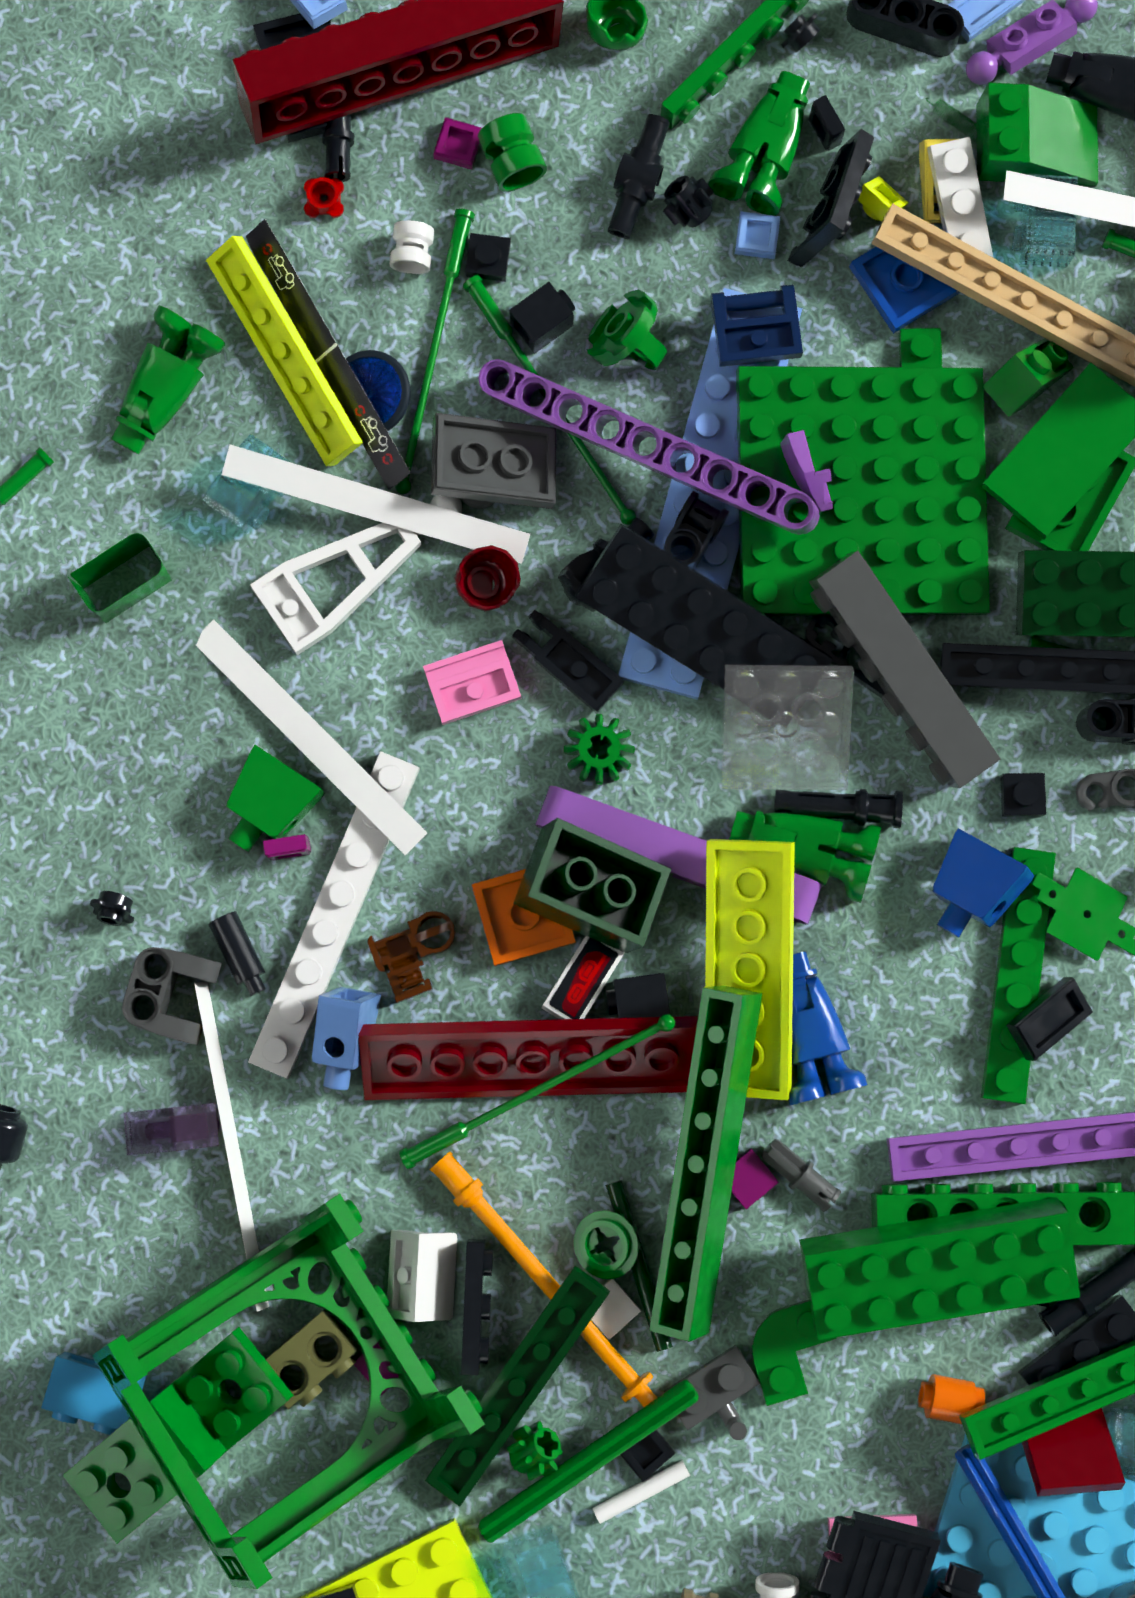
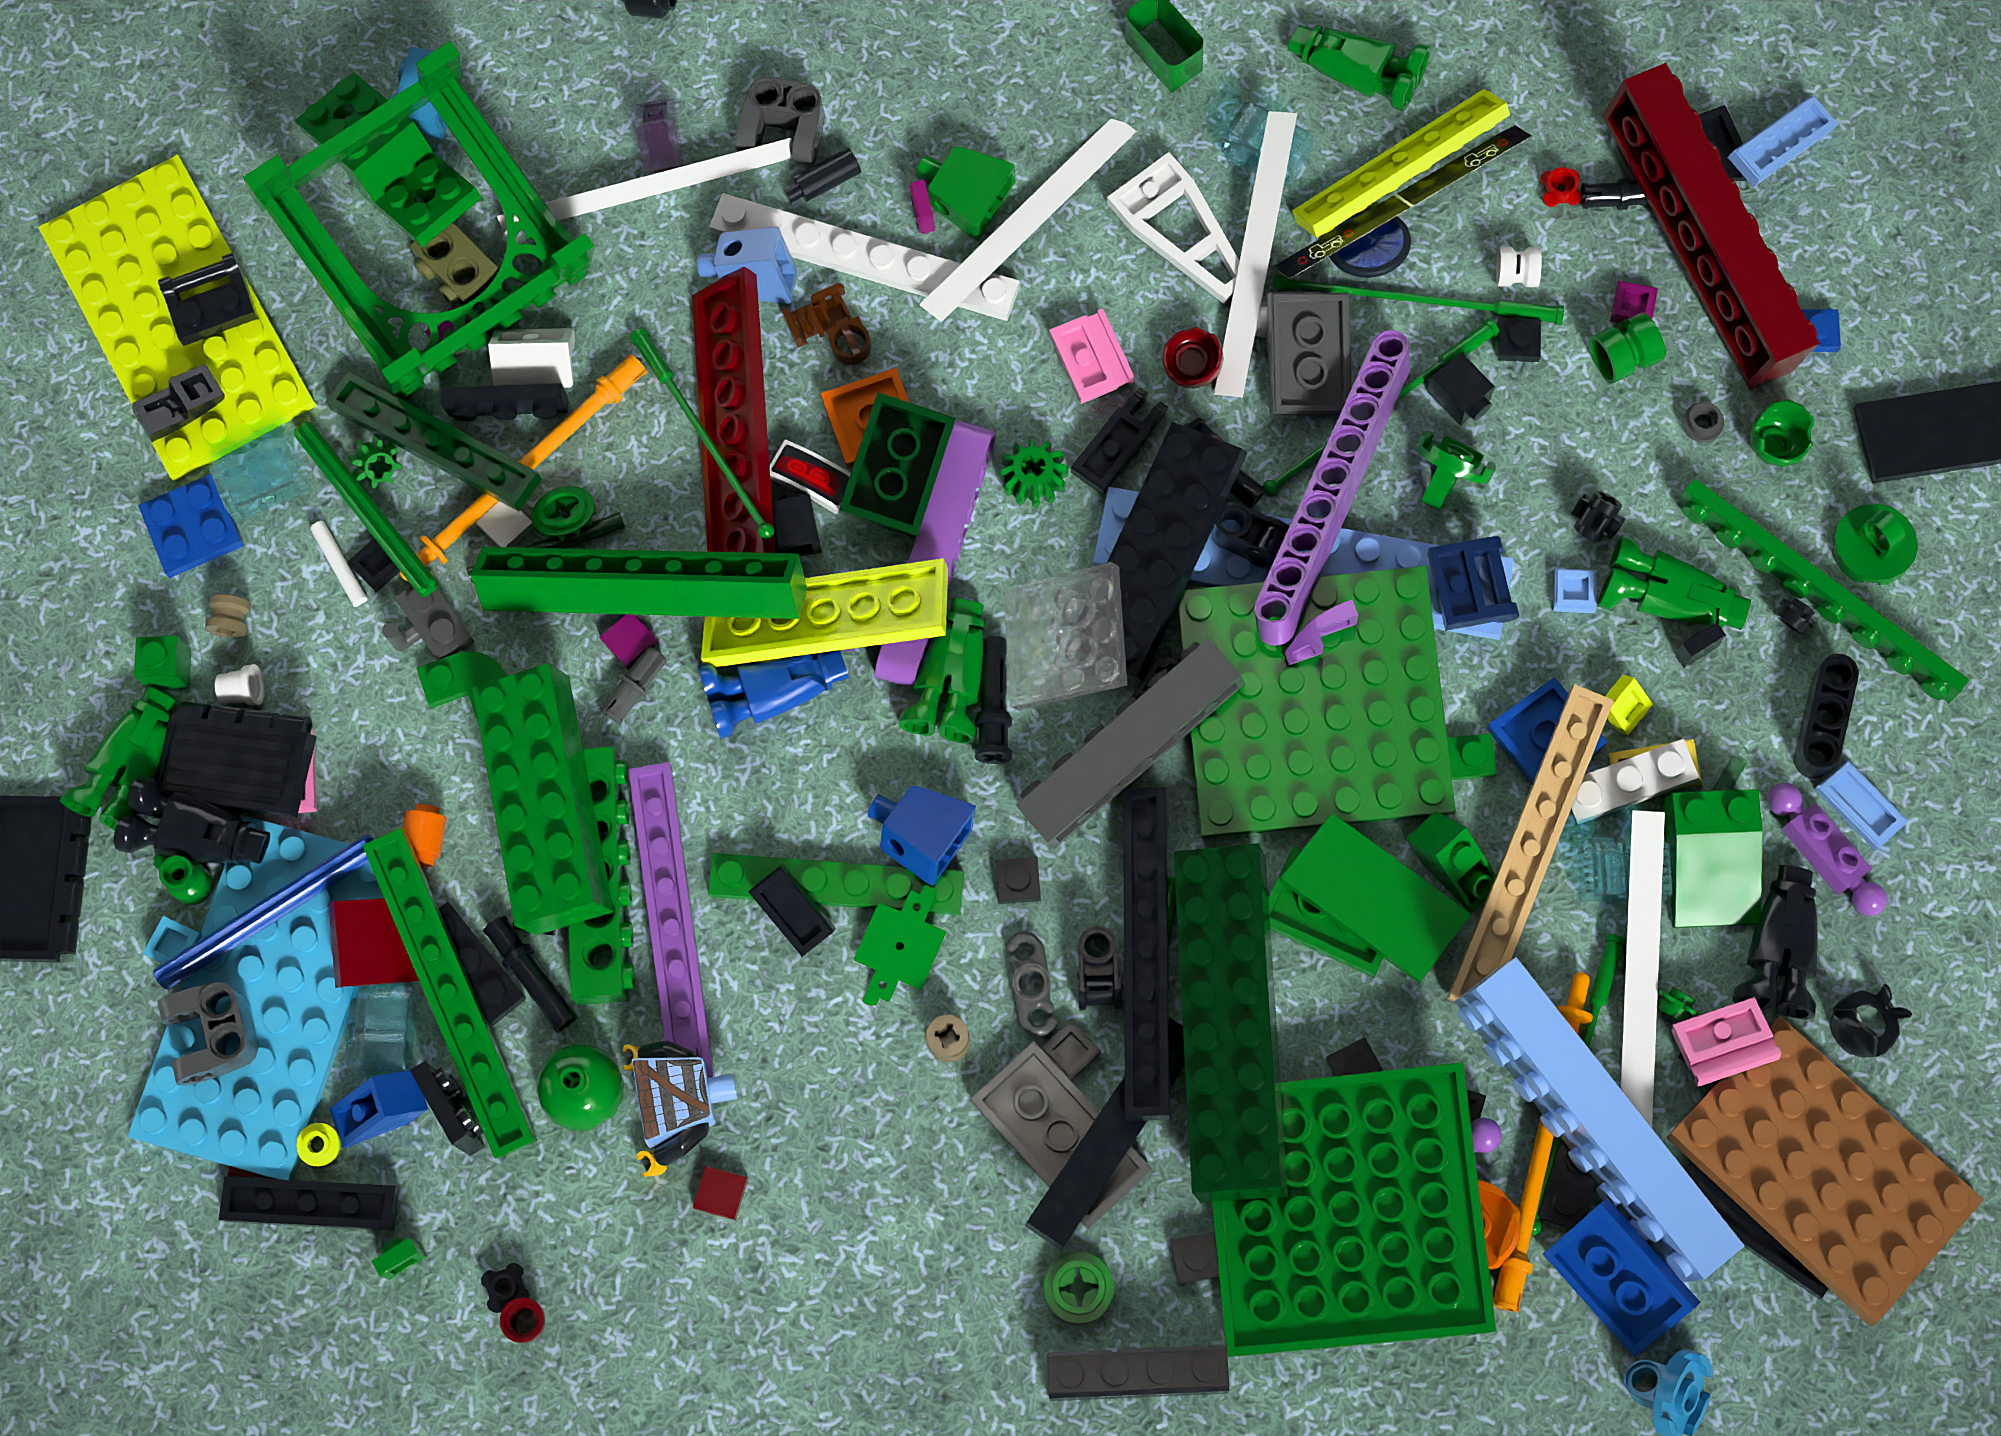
camera: 95 degrees right, 10 degrees down
(112, 908) = (857, 67): black plate -> none
(591, 81) = (1711, 414): none -> dark grey plate
(638, 176) = (1619, 469): black pin -> none
(841, 192) = (1623, 659): black wing -> none

